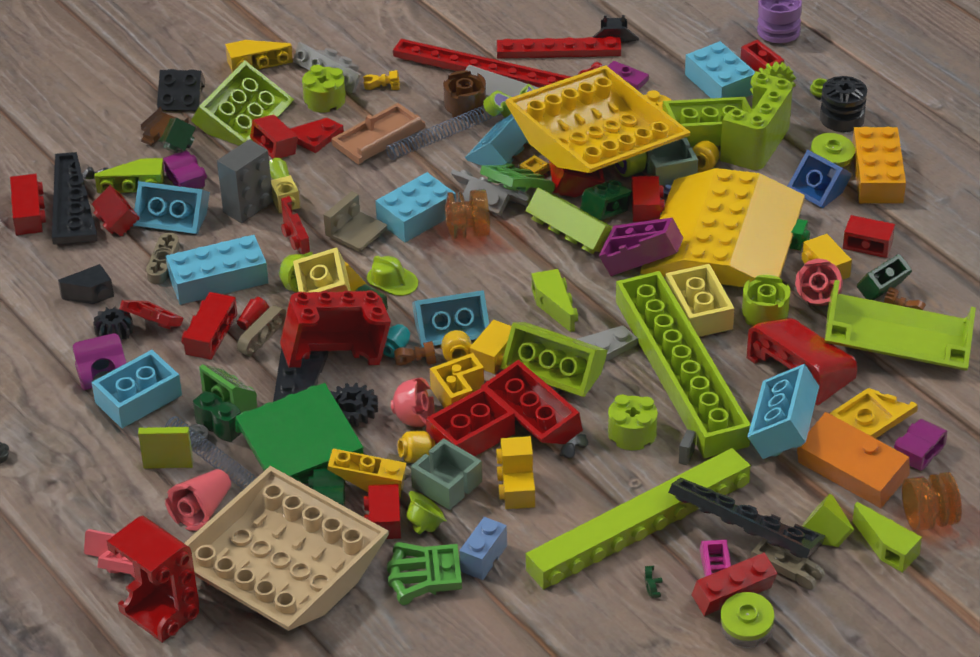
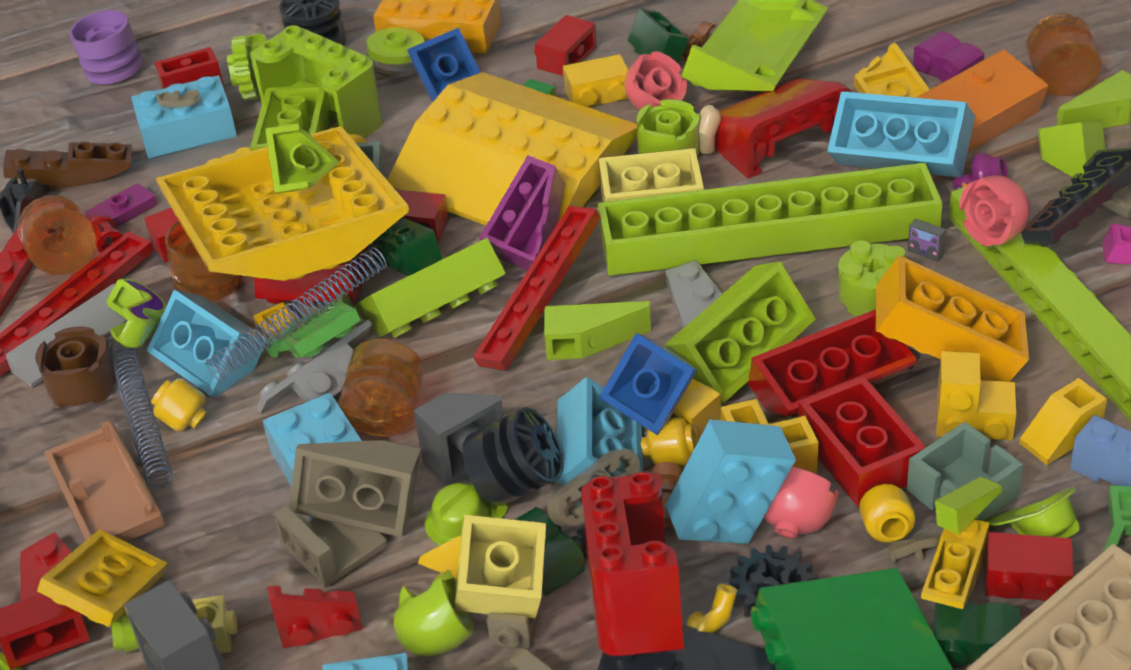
camera: 75 degrees left, 0 degrees up
(301, 145) = (102, 577): none -> yellow plate
(331, 382) = (719, 612): none -> yellow arm
(382, 221) = (356, 483): none -> dark tan slope
(399, 355) = (729, 482): none -> medium azure brick
(402, 459) = (964, 504): none -> lime piece
(404, 321) = (572, 490): none -> dark tan beam
(405, 264) = (513, 456): none -> black wheel
(432, 252) = (445, 425): none -> dark grey slope
(444, 142) = (179, 405): none -> yellow head
(486, 315) = (648, 383): none -> blue slope
(519, 521) = (1061, 419): none -> yellow slope
(522, 159) = (296, 315): none -> sand blue piece
(568, 49) = (60, 252): none -> clear orange wheel
(574, 447) = (948, 316): none -> light orange brick
(580, 263) = (536, 288): none -> red plate
(619, 112) = (296, 158): none -> lime slope
(654, 39) = (79, 166): none -> reddish brown slope
(692, 457) = (994, 209): none -> coral cylinder
(712, 56) = (169, 100): none -> dark tan piece
(773, 472) = (982, 166): none -> magenta animal
(774, 313) = (708, 127): none -> tan arm

